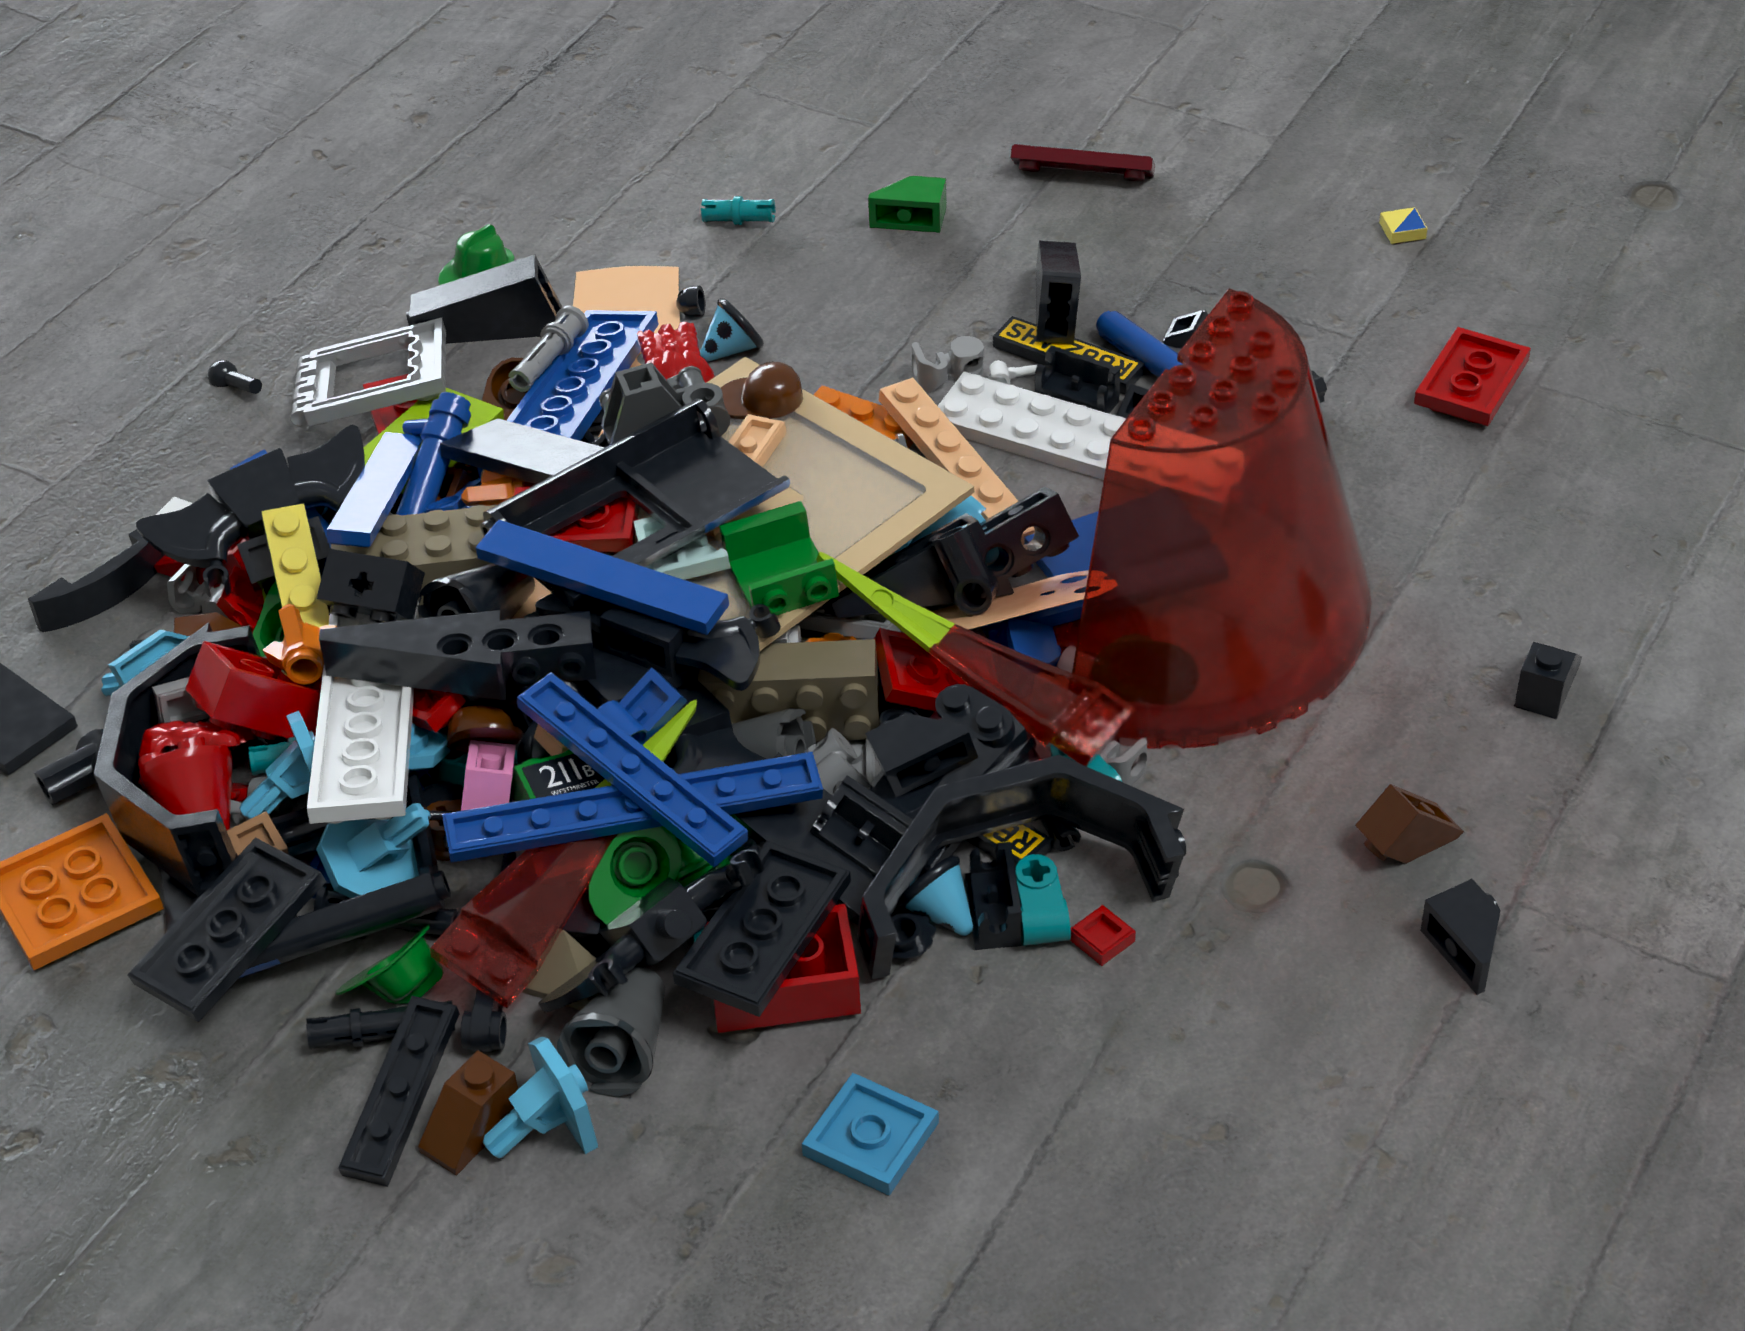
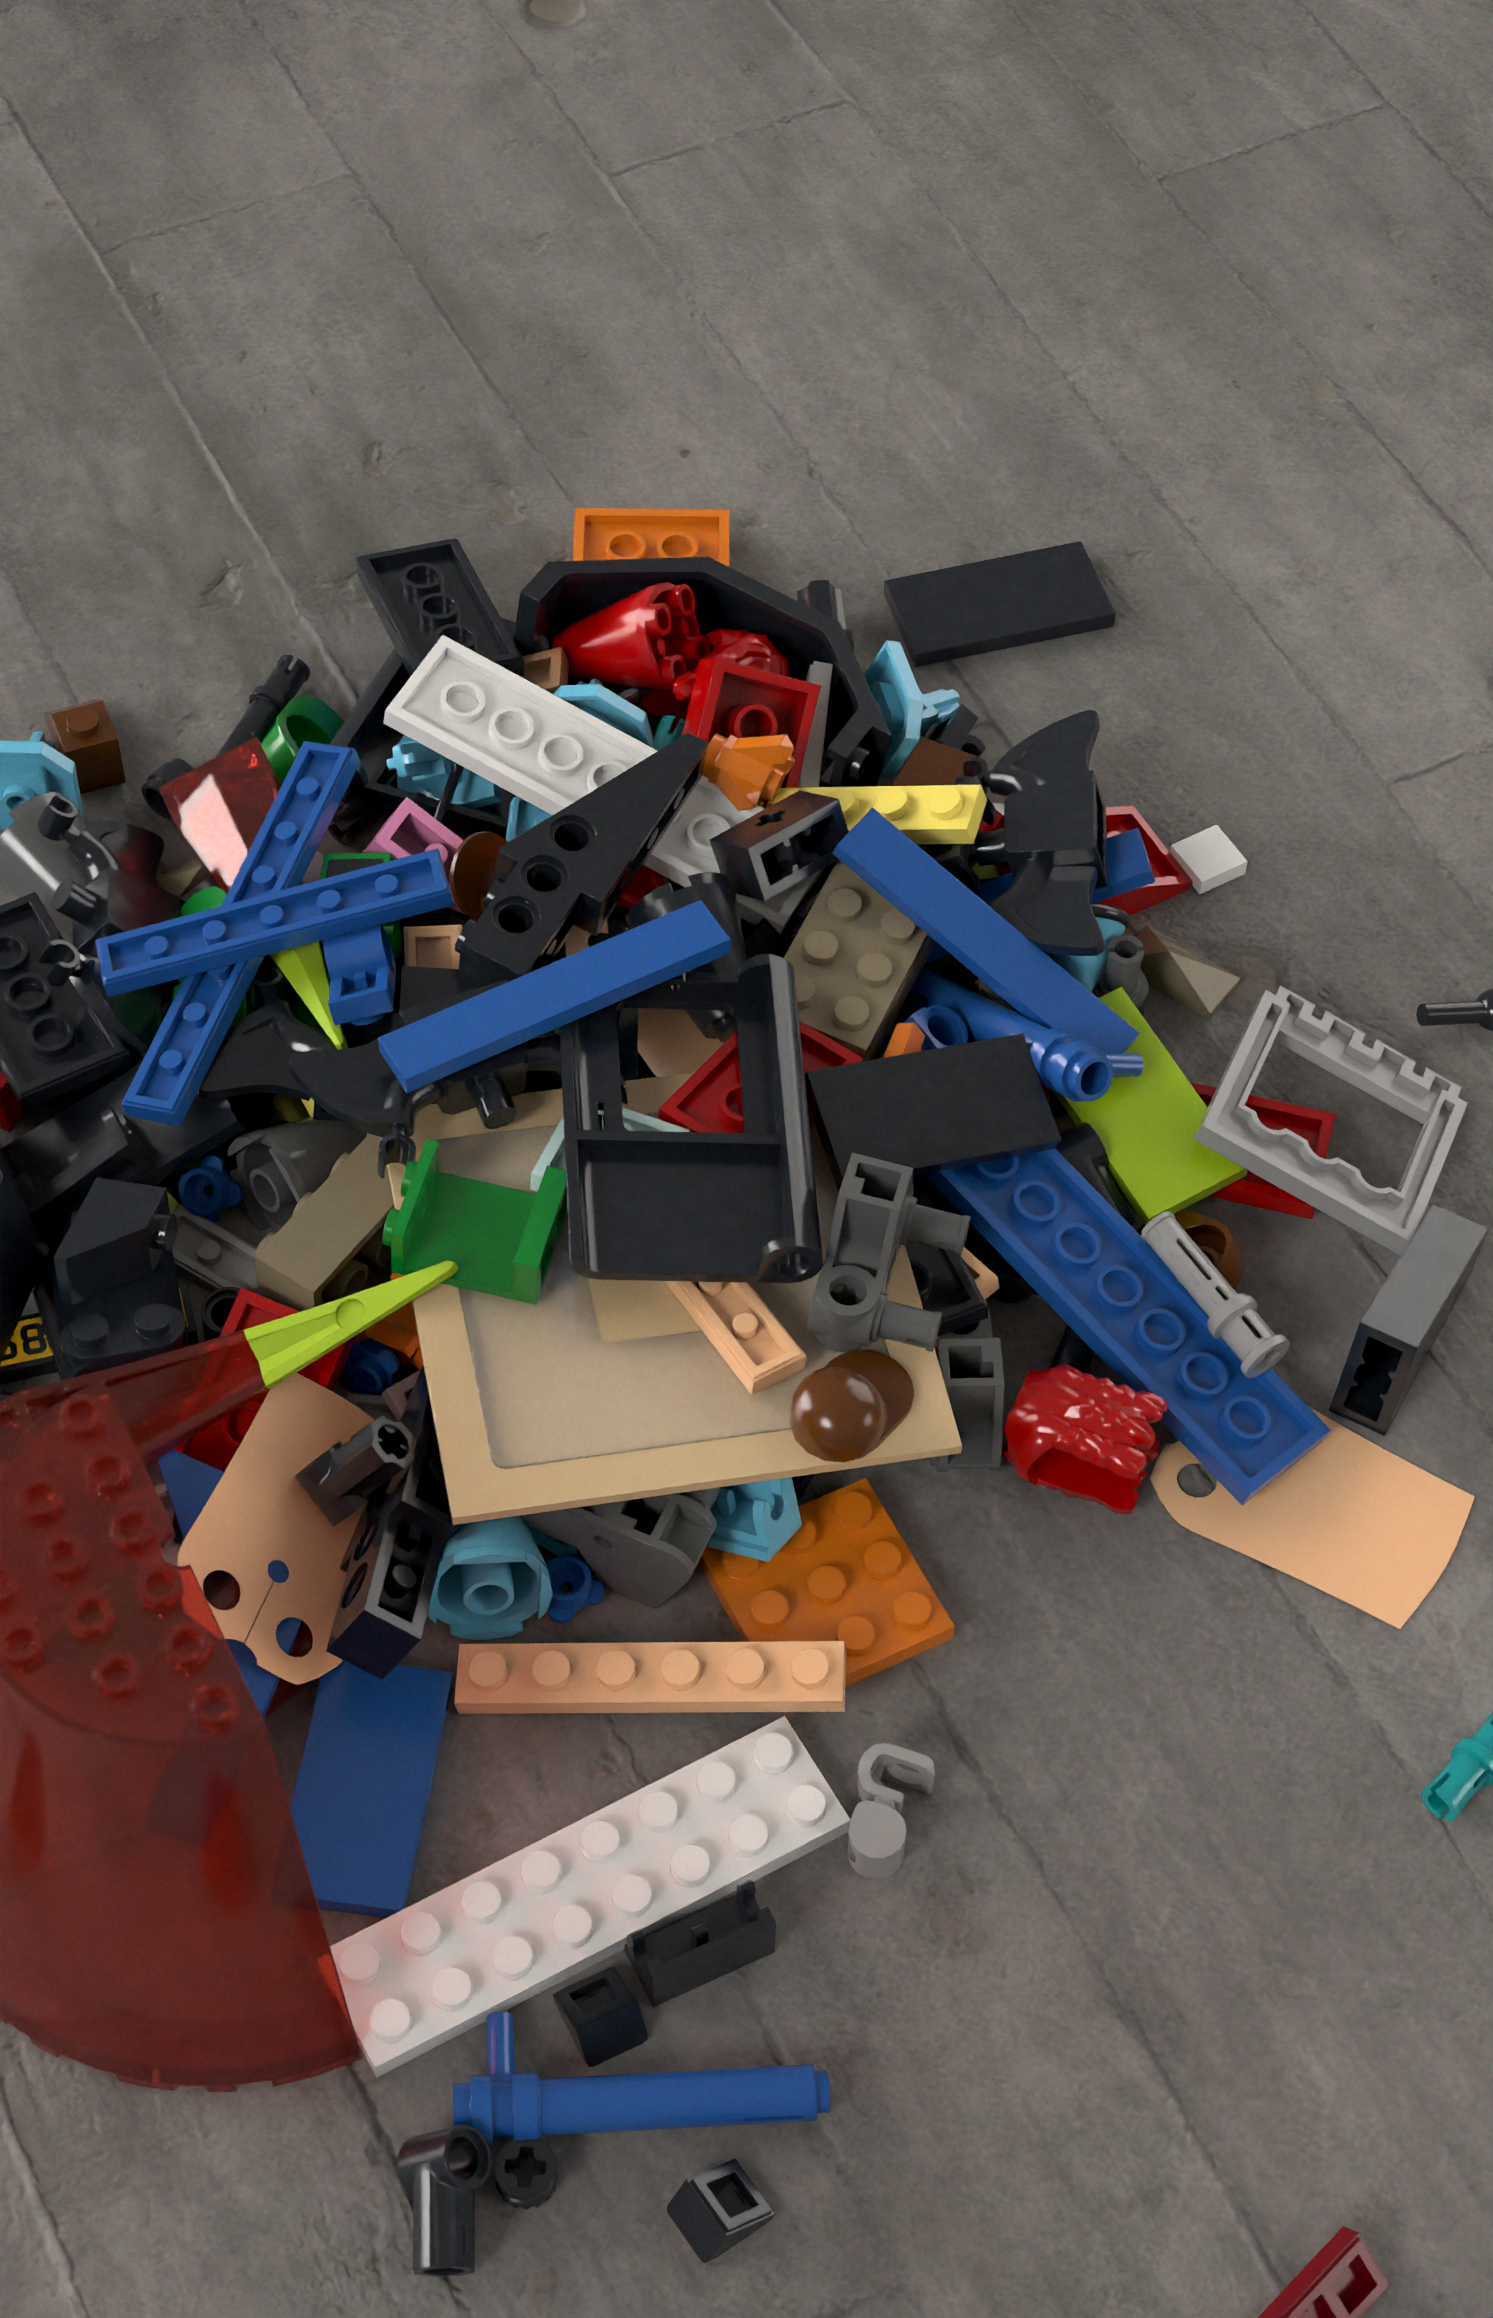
camera: 120 degrees right, 10 degrees up
(101, 589) = (1151, 794): black slope -> none
(399, 1091) = (160, 699): black tile -> none
(691, 301) = (1266, 1591): black hinge -> none
(729, 333) = (1153, 1584): hat -> none
(833, 760) = (237, 1219): light grey leg -> none
(909, 204) = (1318, 2011): green slope -> none
(1001, 373) = (815, 1868): white hand -> none
(1020, 339) = (796, 1995): tile -> none
(1057, 291) = (924, 2036): black slope -> none

